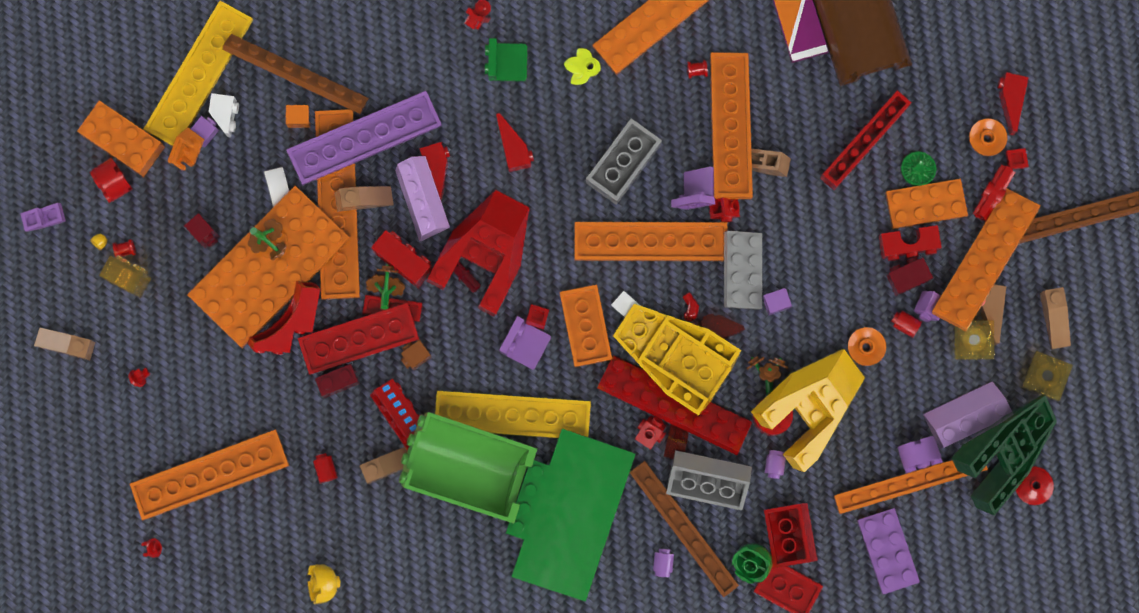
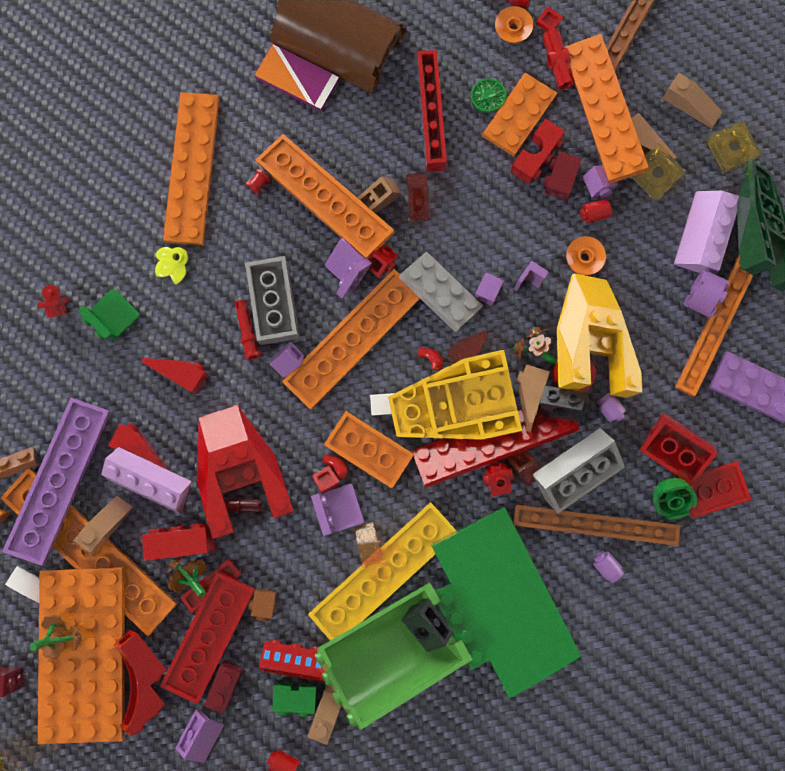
camera: 40 degrees left, 0 degrees up
(289, 396) = (198, 737): none -> medium lavender panel
(378, 441) = (295, 699): none -> green brick
(507, 474) = (427, 626): none -> black brick
(522, 387) = (369, 544): none -> clear orange slope
(555, 316) = (338, 465): none -> red arm
(582, 170) = (248, 337): none -> red pin
(593, 211) = (287, 359): none -> medium lavender panel
(736, 395) = (530, 392): none -> medium nougat slope
(743, 426) = (563, 404): none -> black brick
(795, 189) = (418, 196): none -> clear red slope
(816, 320) = (534, 274): none -> medium lavender panel

